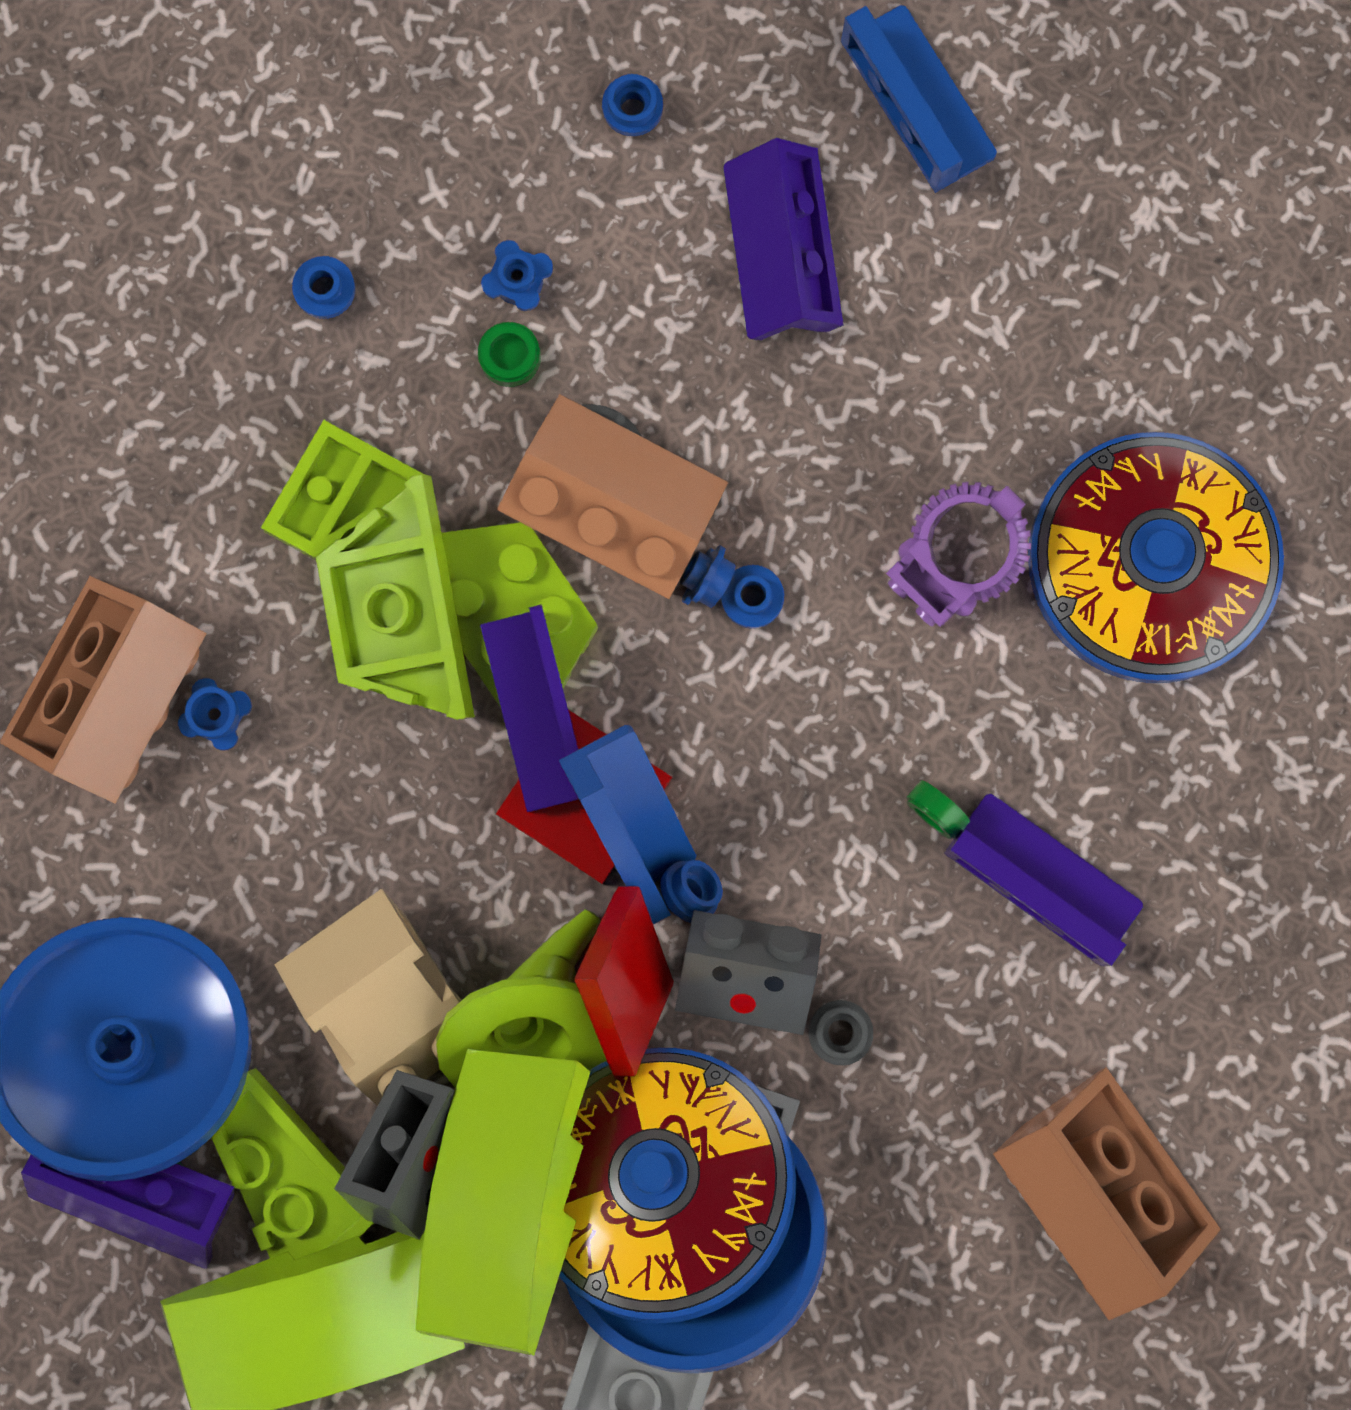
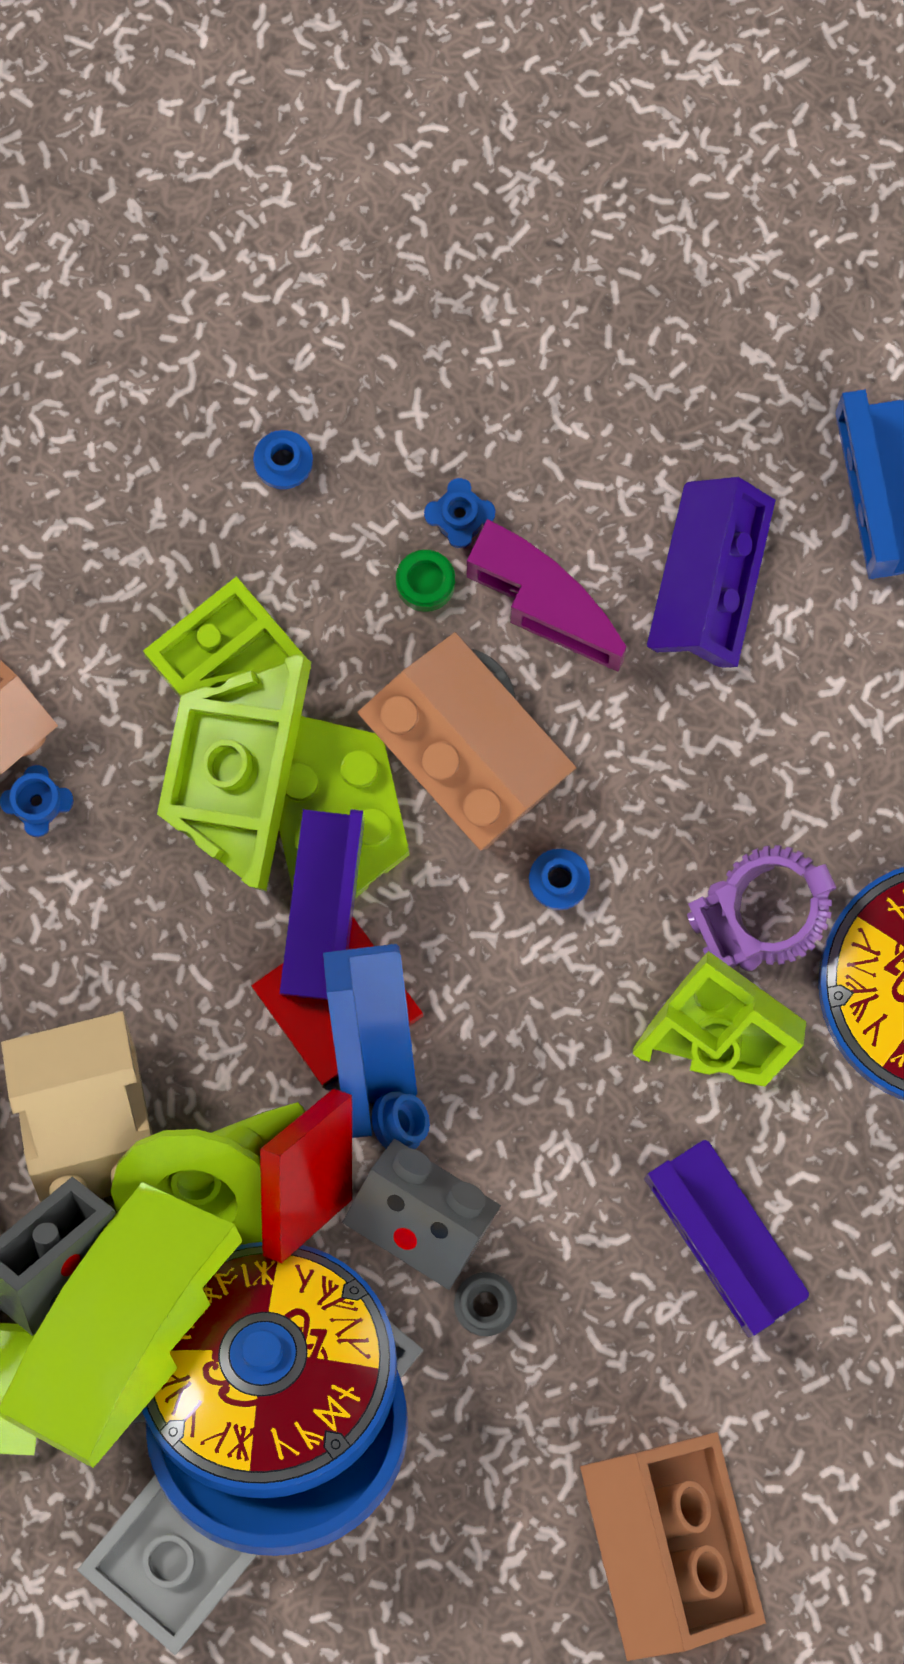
camera: 20 degrees right, 5 degrees down
(632, 87) = (623, 383): blue plate -> none
(633, 324) = (545, 596): none -> magenta slope
(707, 577) = (524, 845): blue plate -> none
(937, 810) = (651, 1135): green tile -> none
(965, 677) = (724, 1026): none -> lime slope

